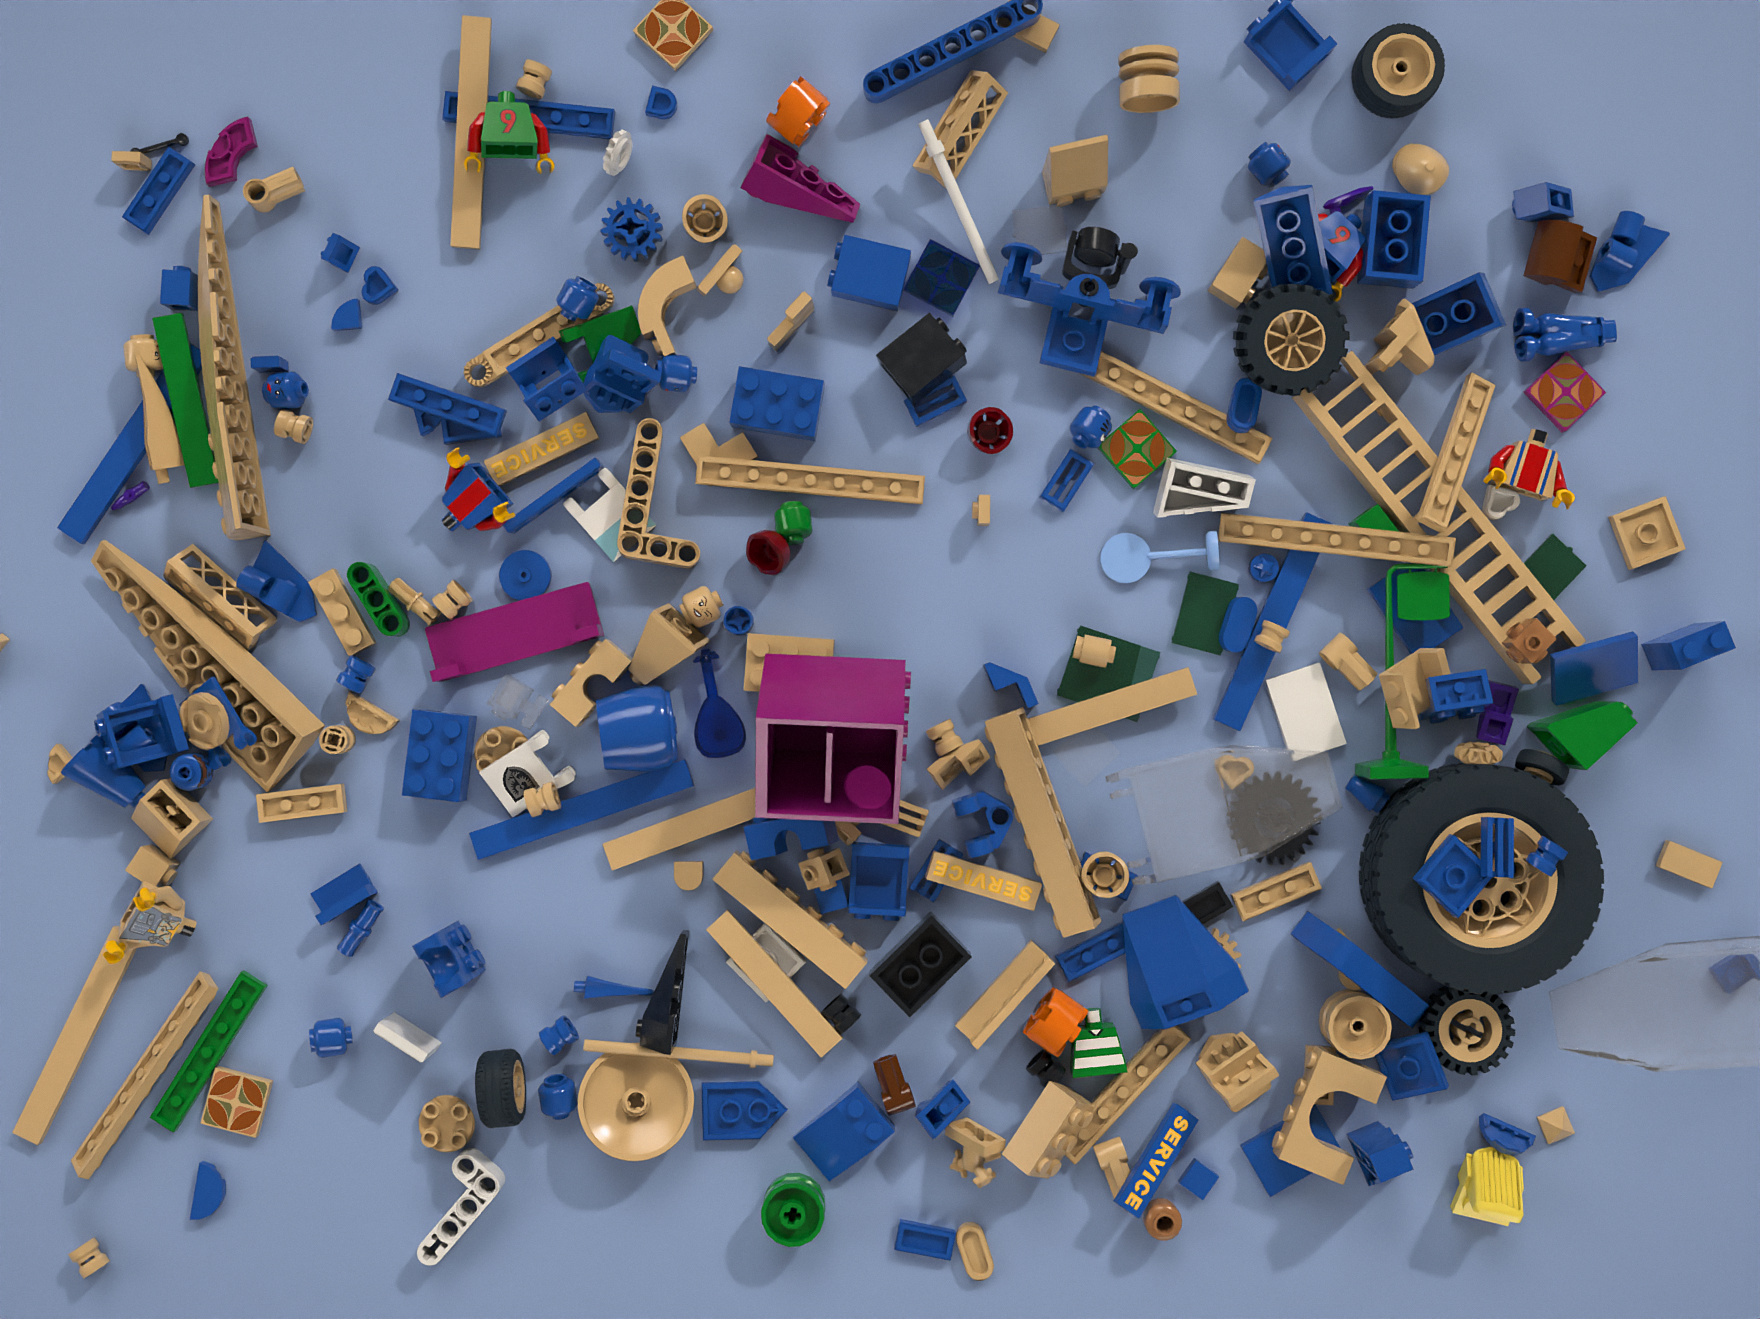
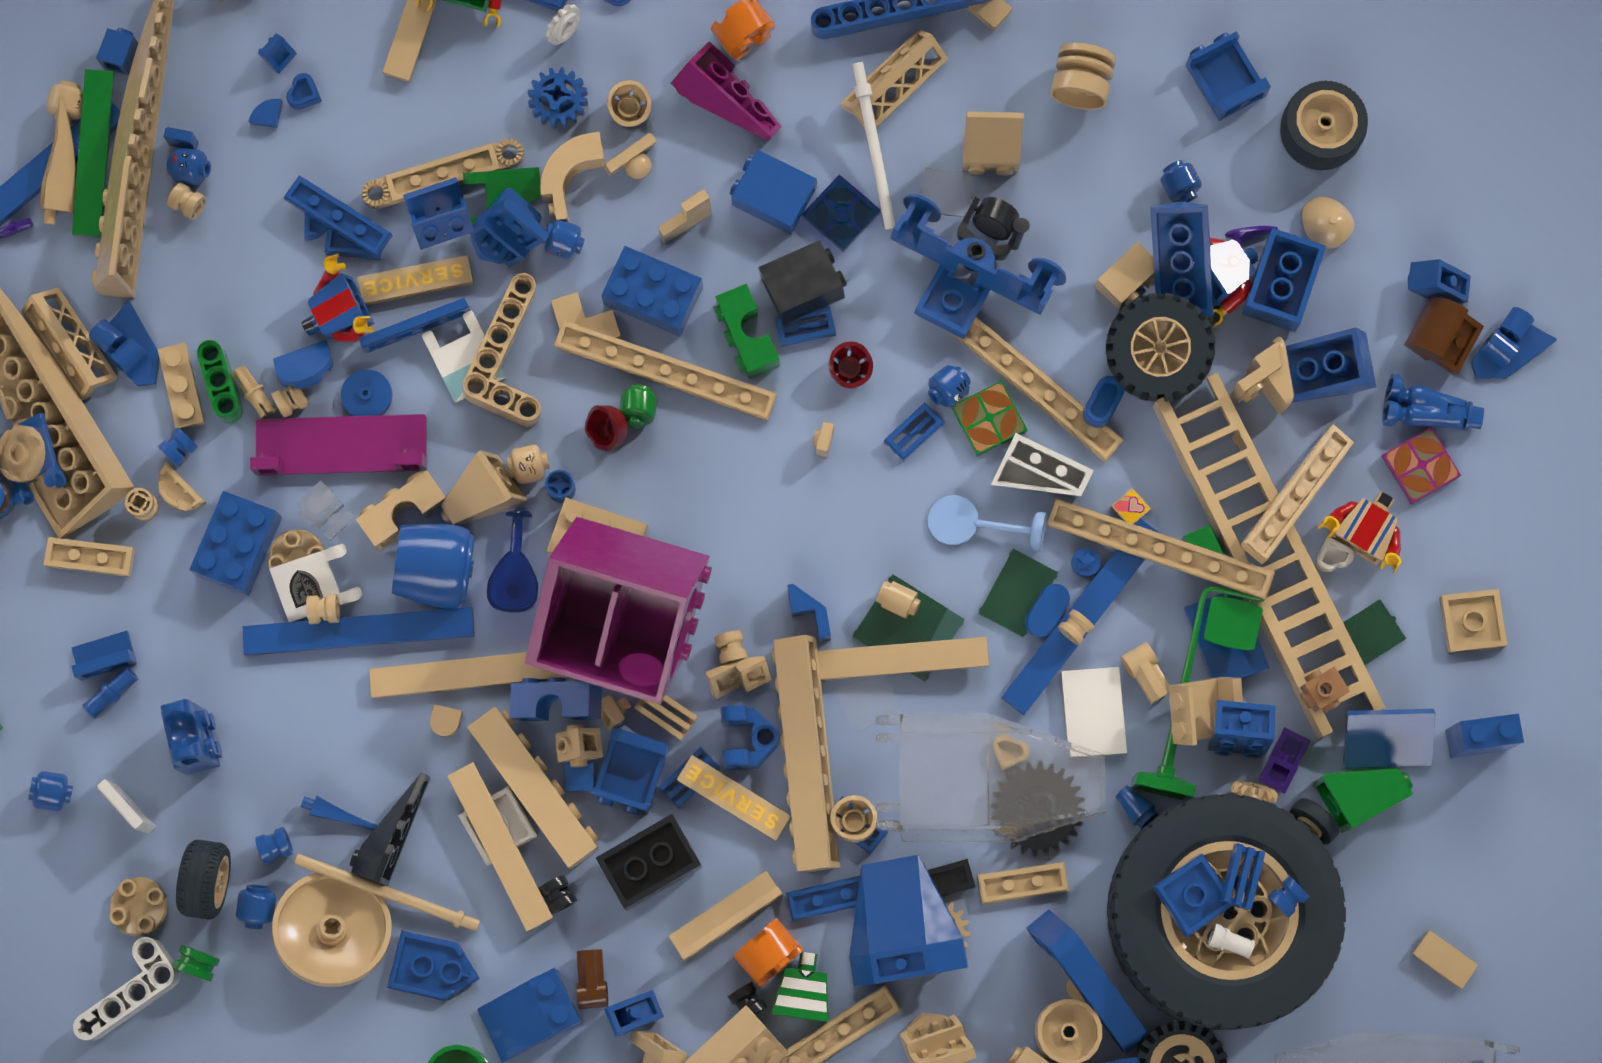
camera: 15 degrees right, 10 degrees down
(456, 564) = (304, 366): none -> blue tile
(516, 1165) = (196, 963): none -> green wheel
(577, 298) = (488, 147): blue head -> none
(892, 442) = (754, 354): none -> green arch
(1294, 503) = (1130, 507): none -> tile
(1492, 910) = (1224, 939): none -> white pin

